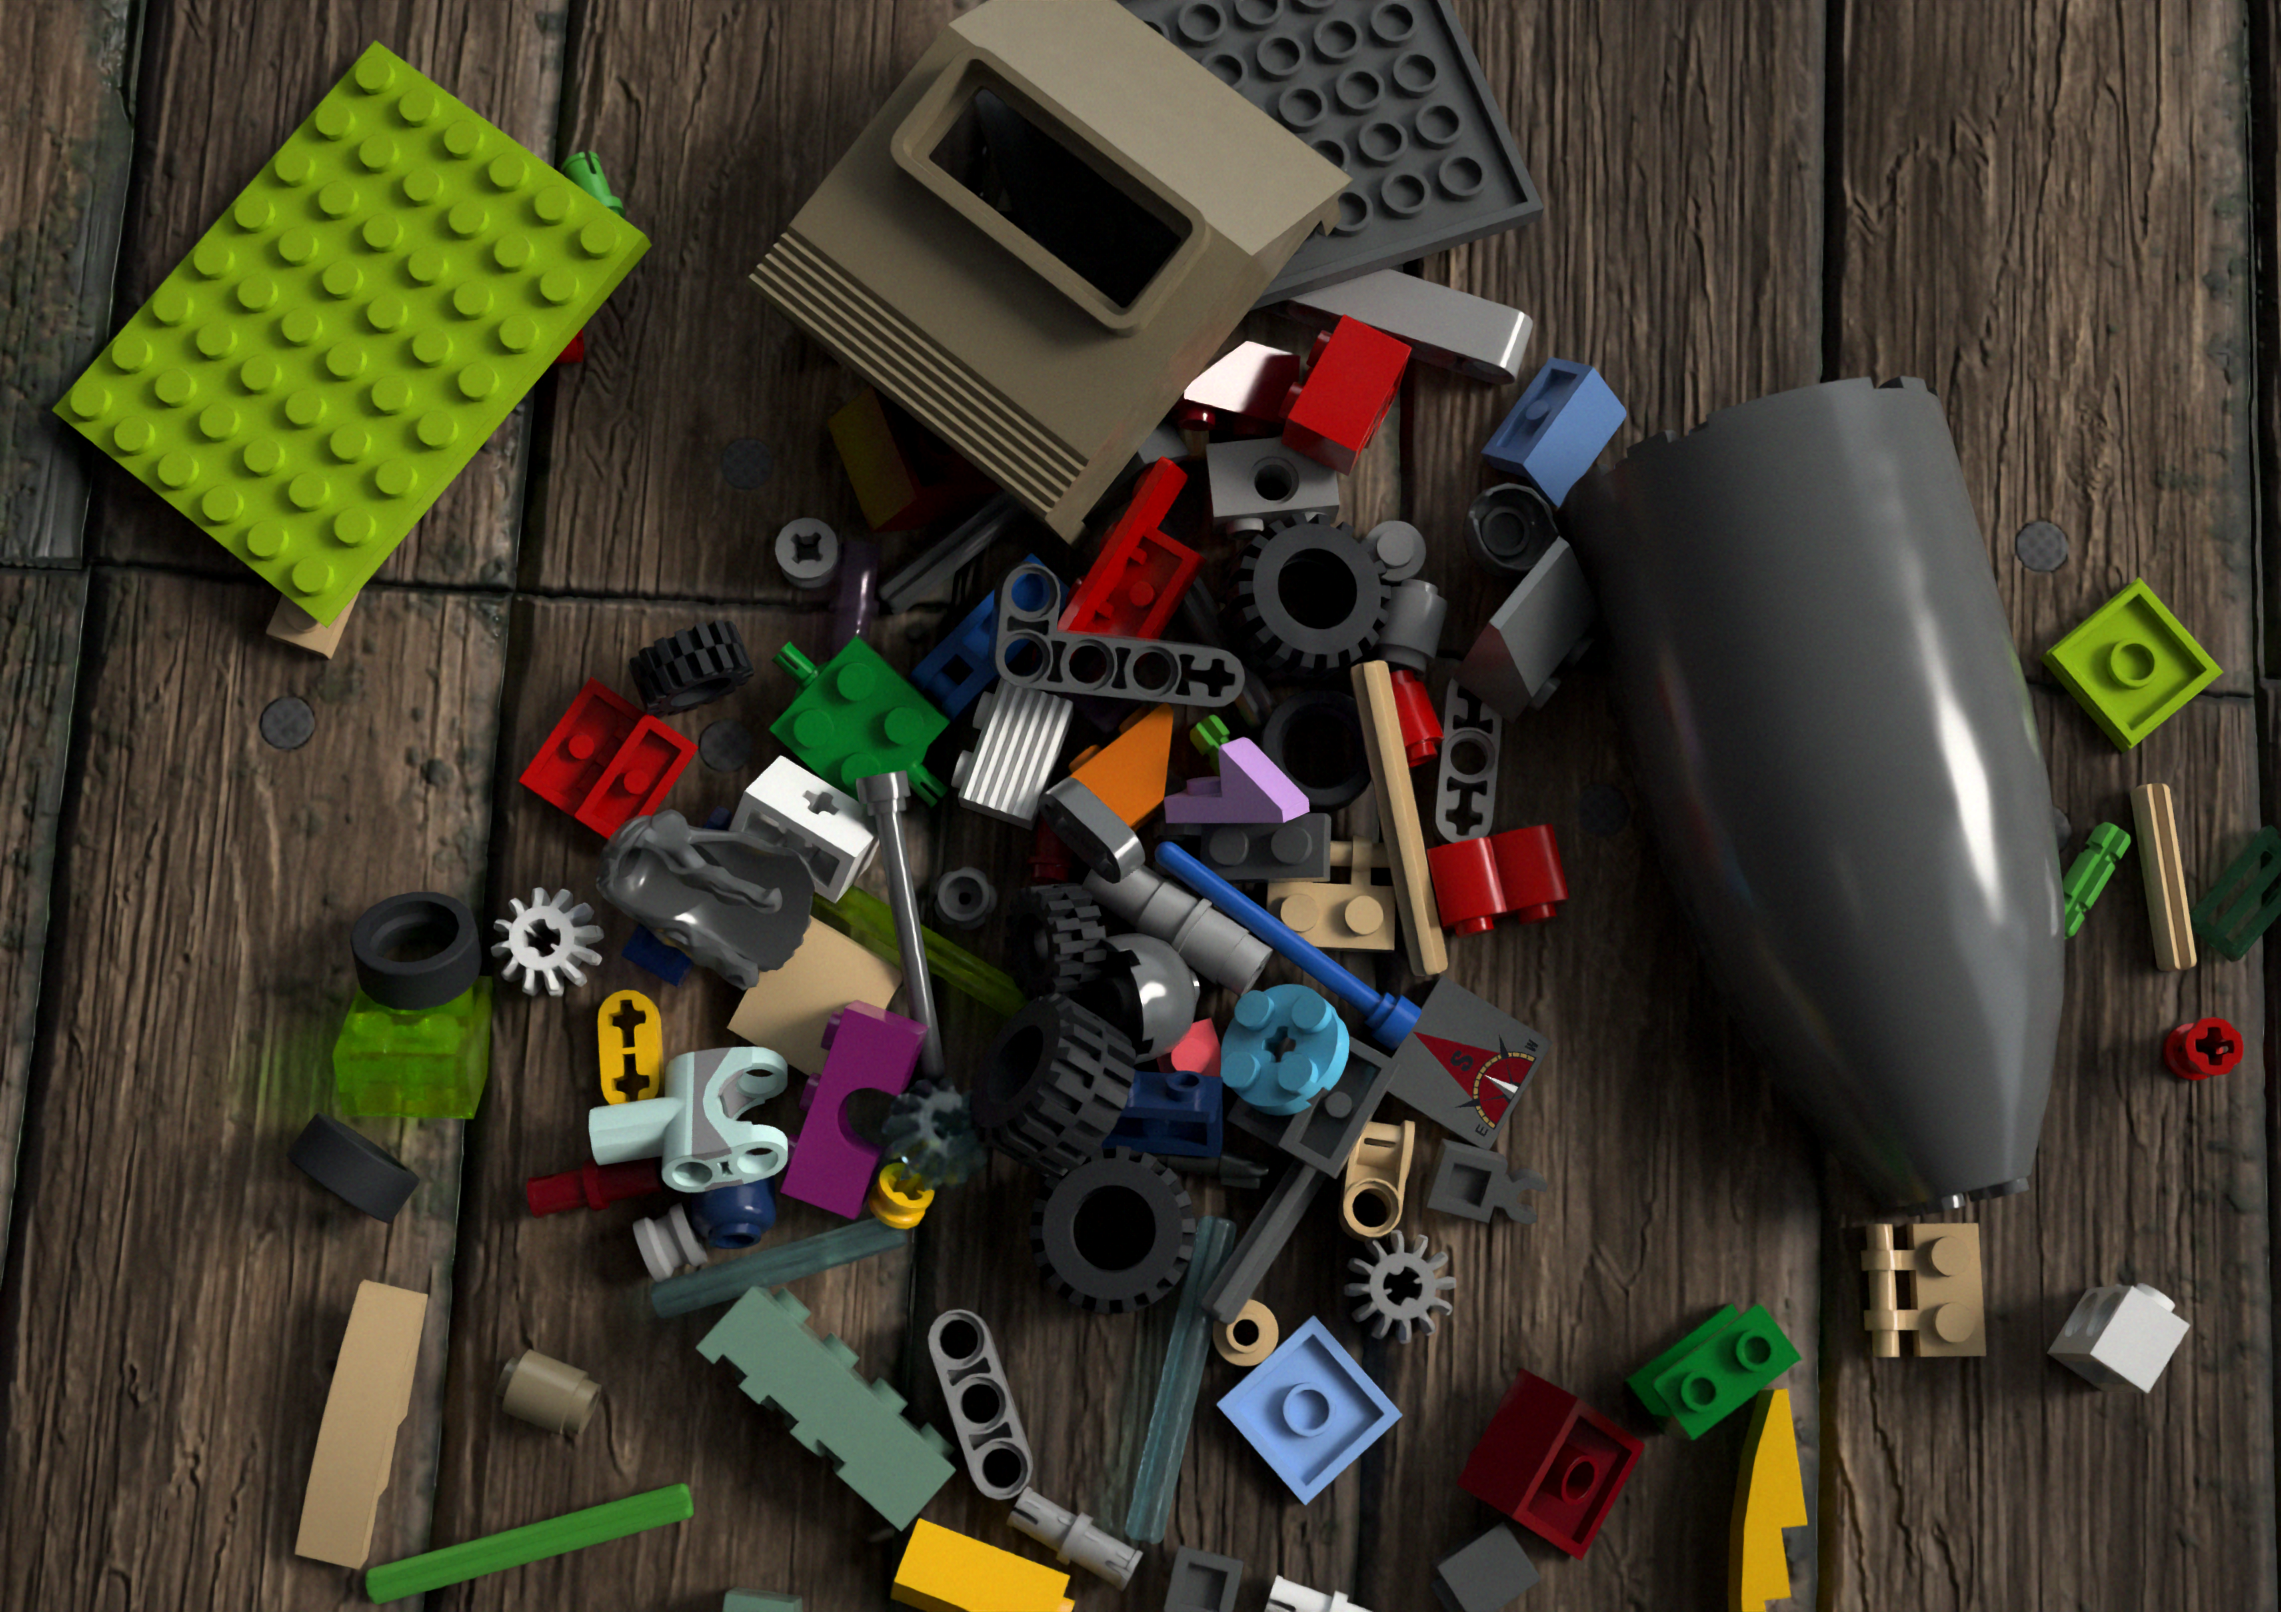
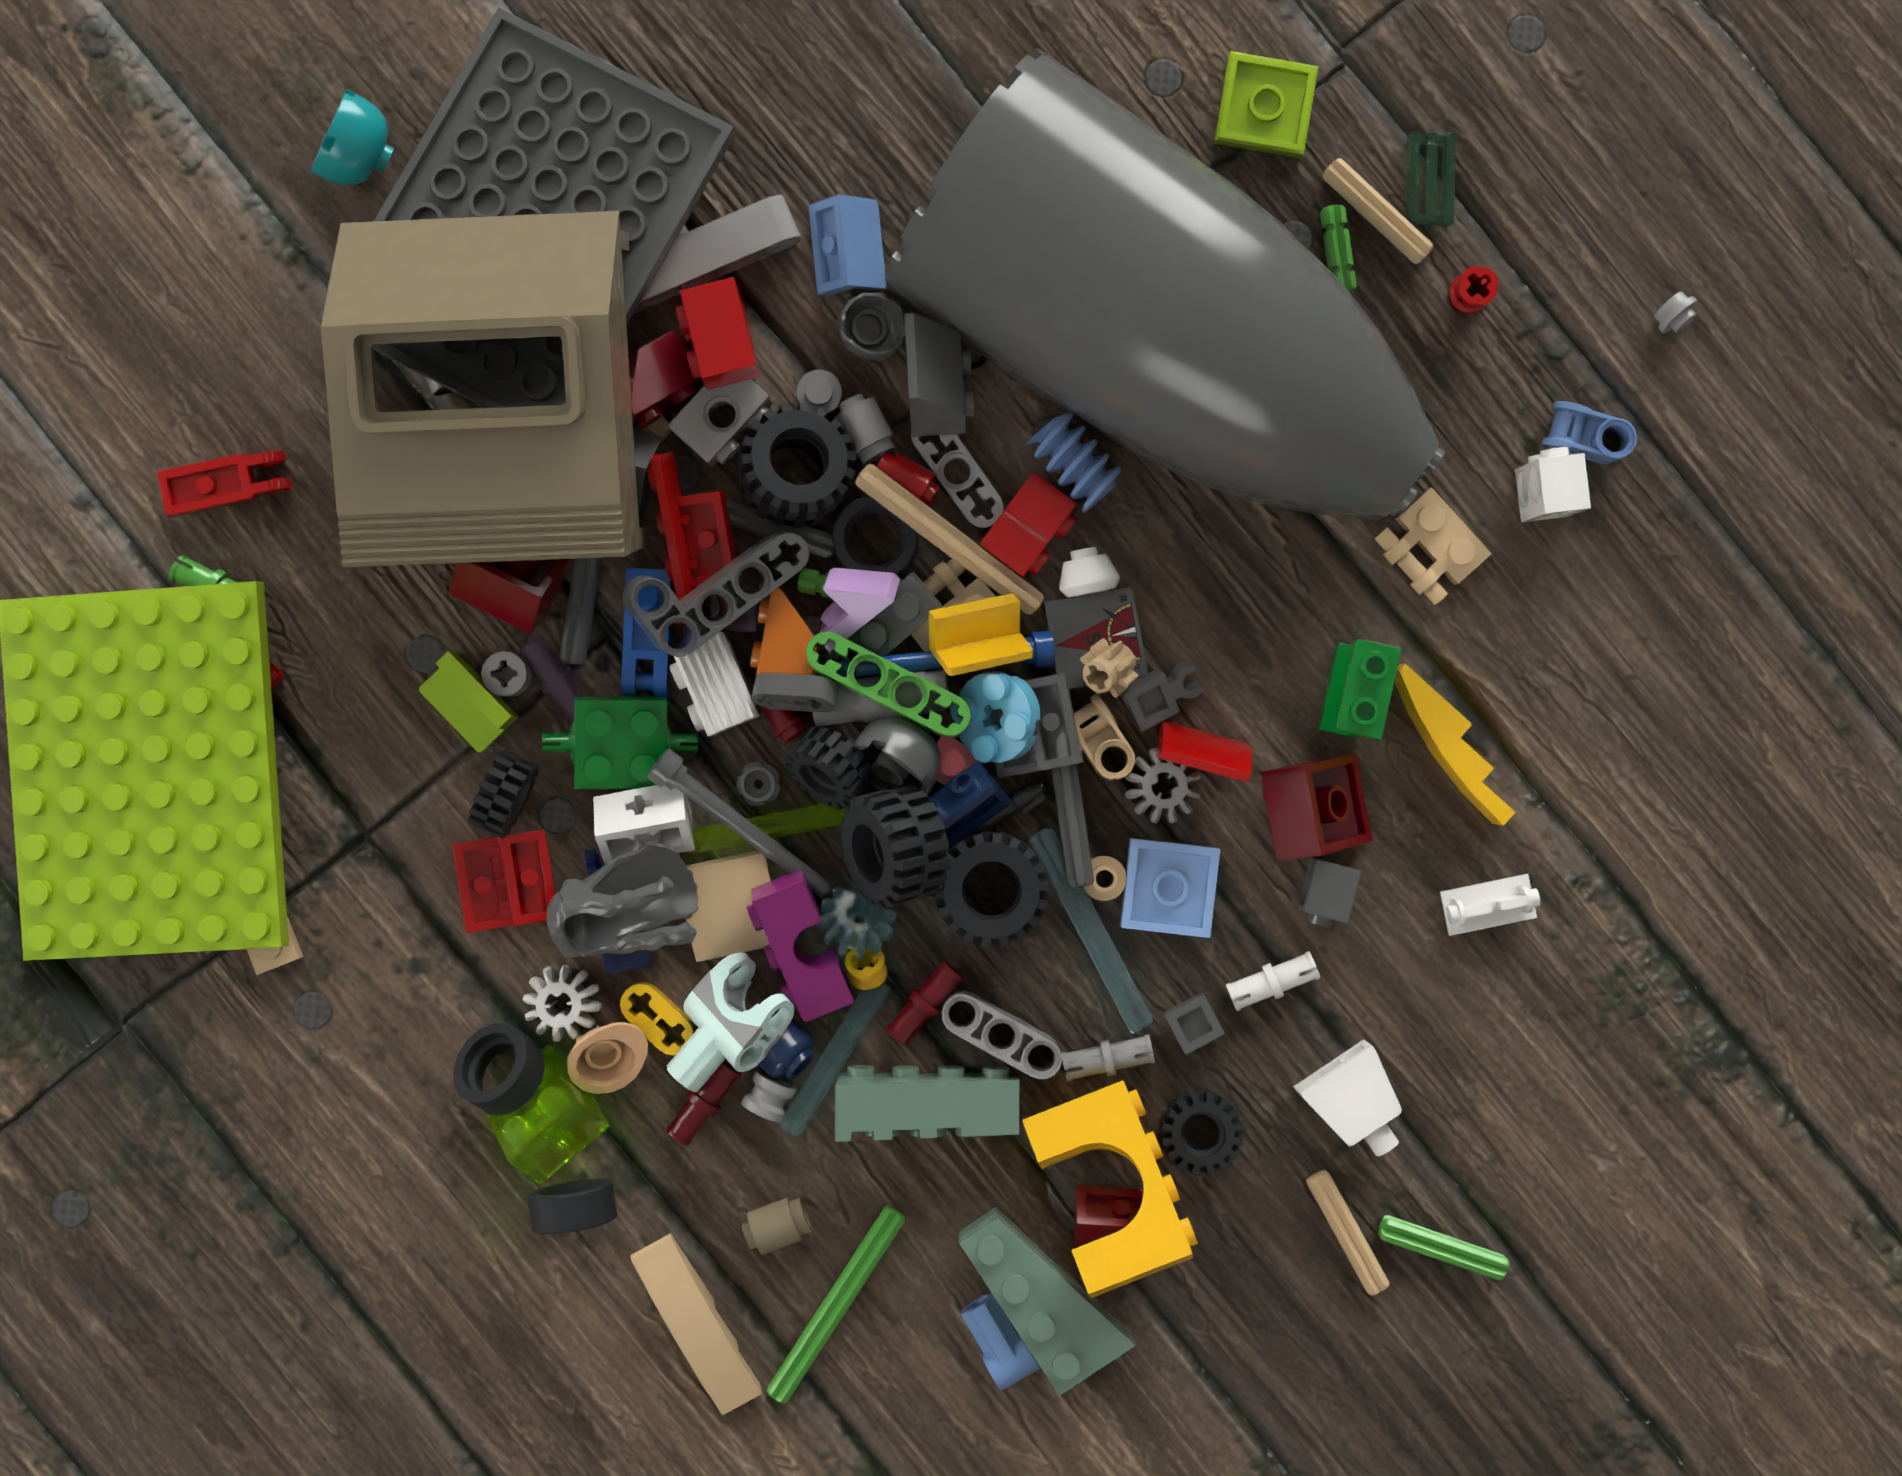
camera: 40 degrees left, 10 degrees up
(539, 1043) = (607, 1057): none -> light nougat piece
(700, 118) = (218, 483): none -> red hinge
(740, 548) = (466, 702): none -> lime panel
(928, 1293) = (924, 1003): none -> dark red pin
(1206, 904) = (891, 678): none -> bright green beam
(1341, 941) = (978, 635): none -> yellow panel
(1452, 1102) = (1109, 667): none -> tan gear
(1479, 1287) = (1204, 751): none -> red slope
(1516, 984) = (1087, 573): none -> white cone
(1605, 853) = (1075, 460): none -> medium blue piece
(2209, 1311) = (1582, 432): none -> medium blue piece

